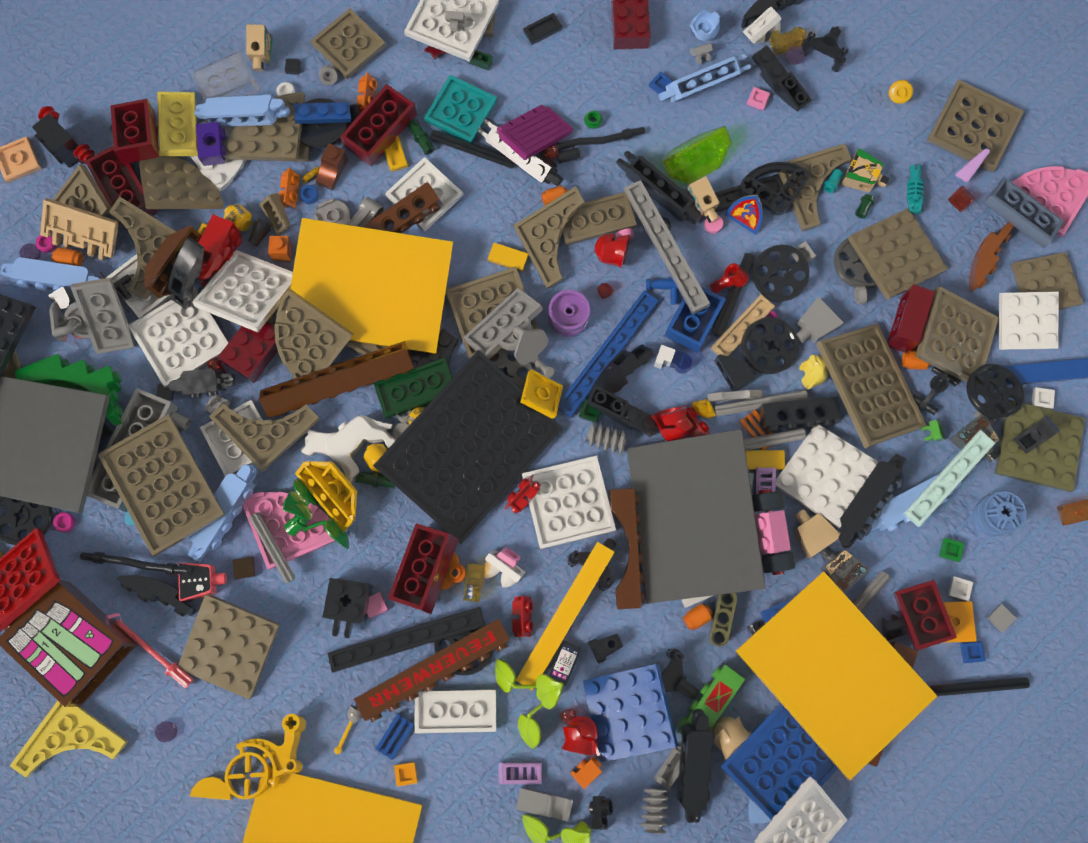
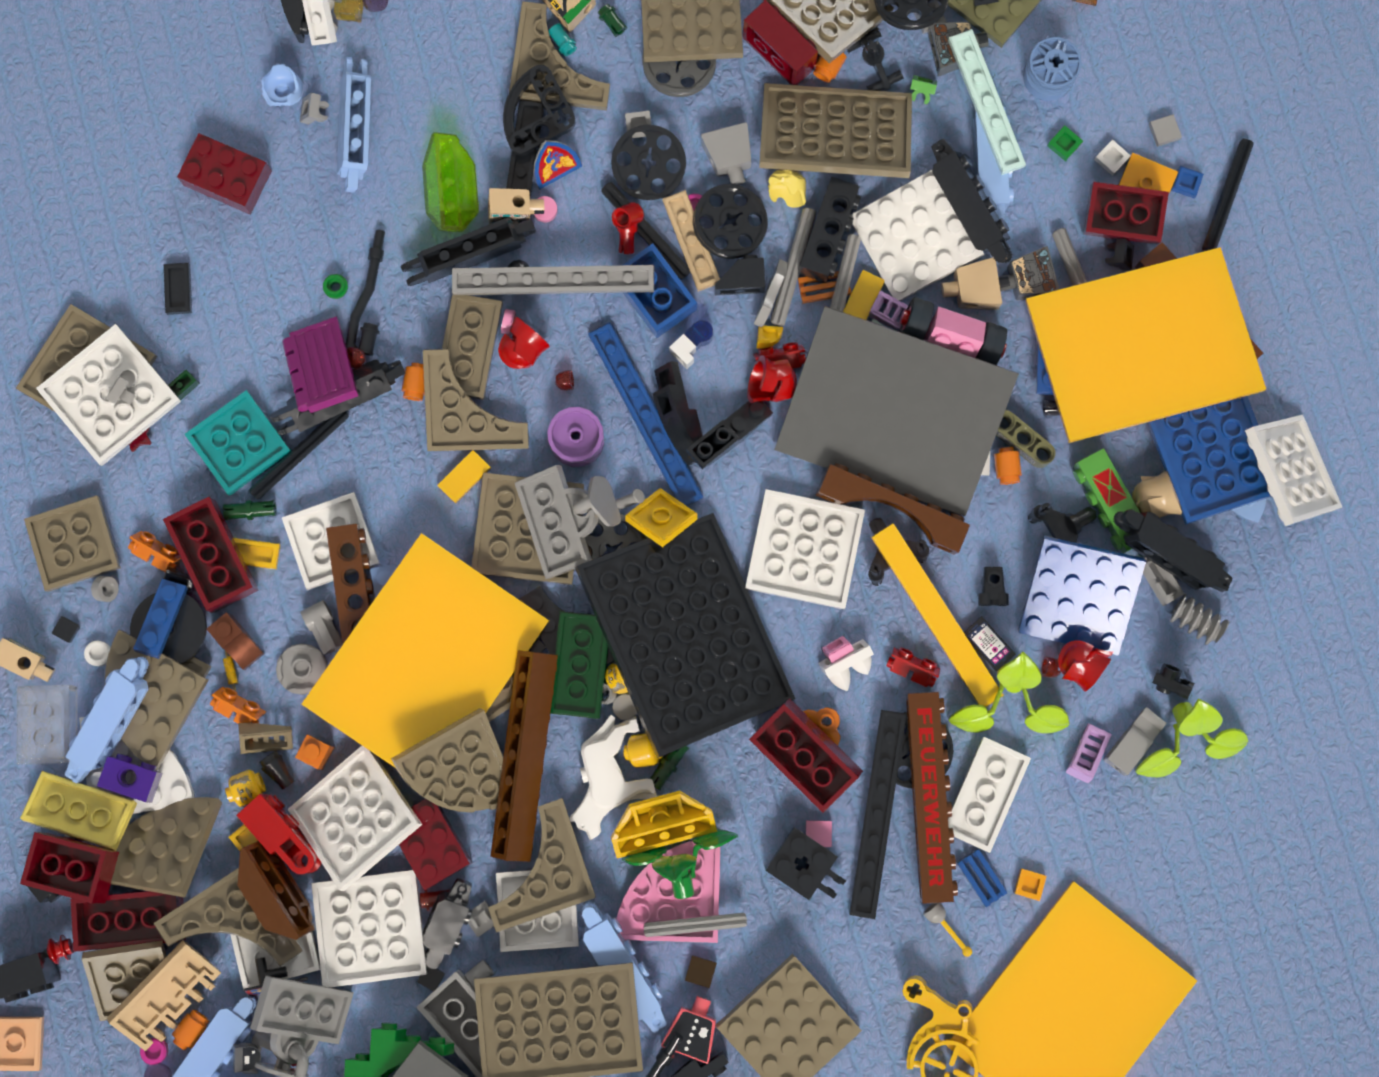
camera: 65 degrees left, 5 degrees up
(185, 271) = (302, 879): black slope -> none
(309, 194) = (256, 685): blue tile -> none
(473, 582) = (848, 705): clear yellow leg -> none
(517, 500) = (773, 607): red hinge -> none
(587, 771) = (1122, 676): orange brick -> none
(589, 413) = (708, 474): dark green tile -> none
(606, 438) = (750, 467): light grey piece -> none
(659, 82) = (328, 179): blue tile -> none
(666, 284) = (593, 305): blue piece -> none
(758, 98) = (409, 72): bright pink tile -> none
(779, 80) = (401, 34): black slope -> none
(860, 295) = (720, 84): light grey tile -> none

